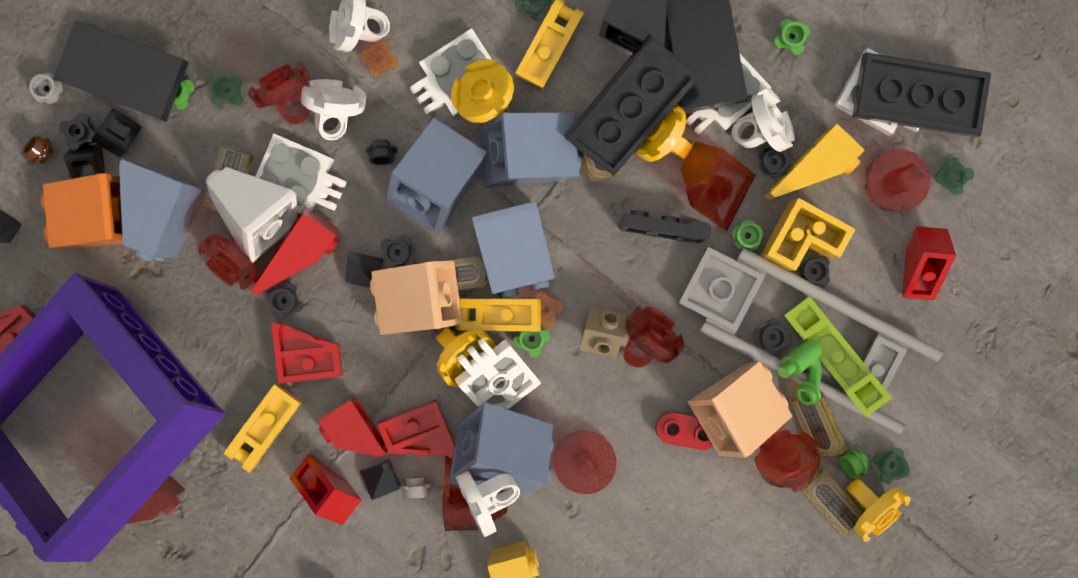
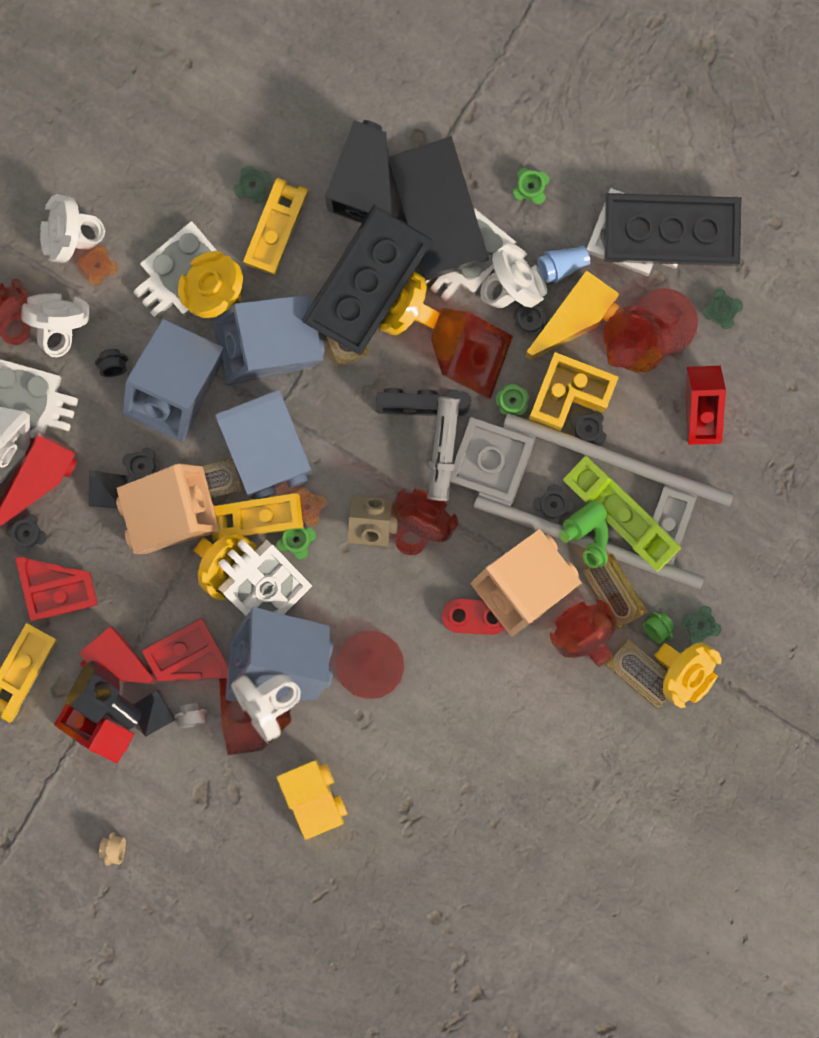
camera: 10 degrees left, 5 degrees down
(339, 470) = (107, 700): none -> black piece
(676, 287) = (443, 448): none -> light grey pin
(810, 113) = (560, 264): none -> light blue cone
(873, 195) = (635, 340): none -> clear red tile

